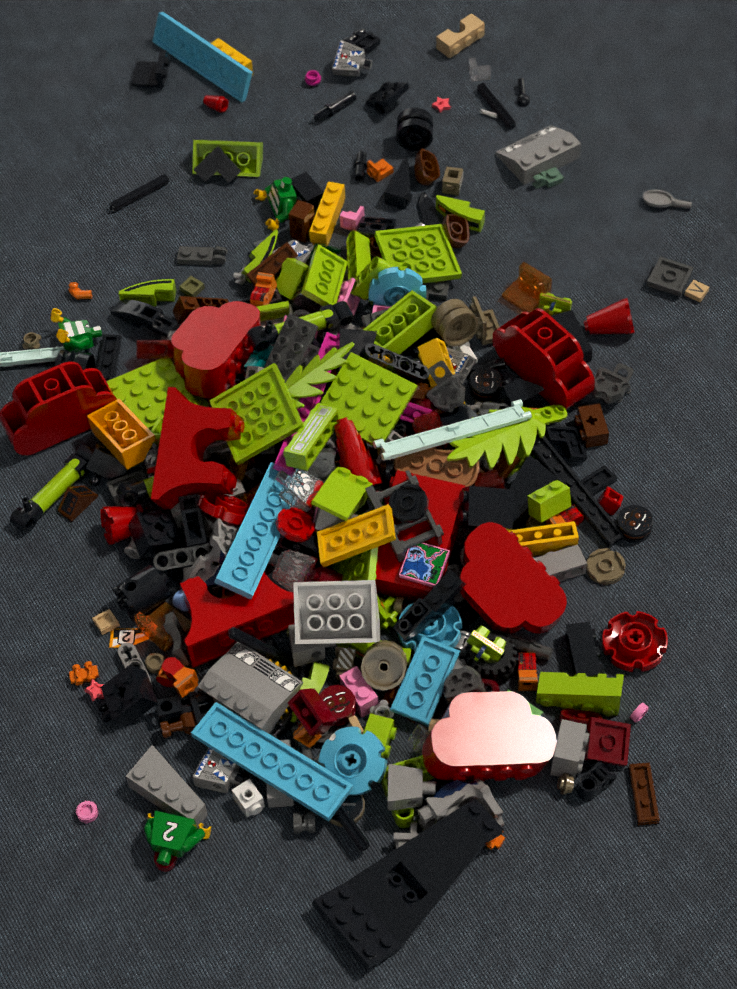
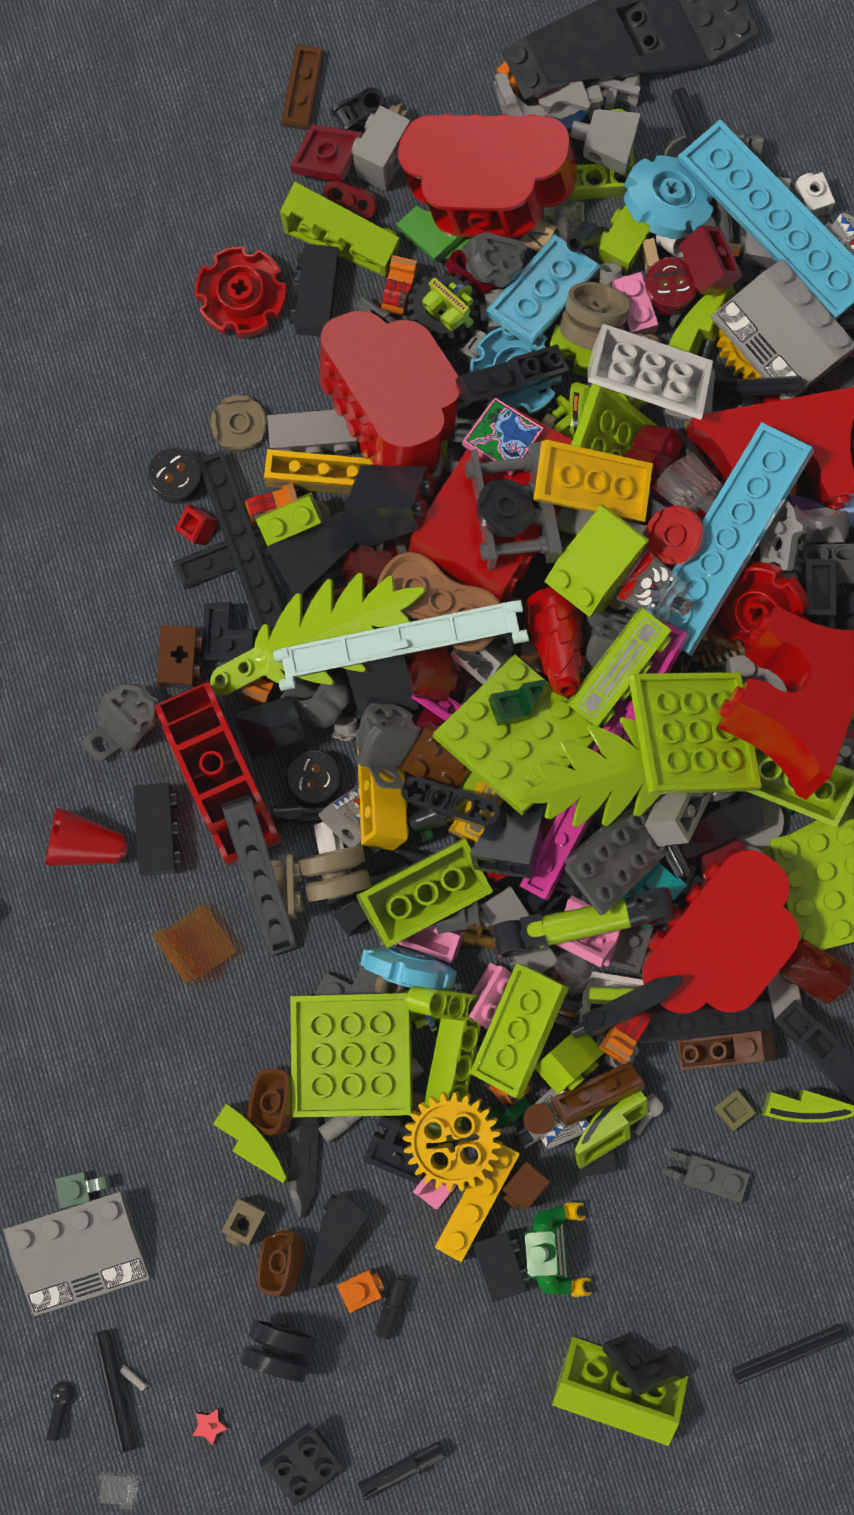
camera: 165 degrees left, 25 degrees up
(265, 297) = (626, 1006): none -> black piece
(302, 247) = (538, 1119): none -> reddish brown tile
(347, 223) = (459, 1167): none -> yellow gear
(371, 410) = (517, 703): none -> dark green slope
(406, 725) = (584, 237): none -> black cone
(502, 310) = (259, 875): none -> black tile
(554, 305) = (163, 898): lime hips -> none
(639, 712) = (271, 190): bright pink tile -> none

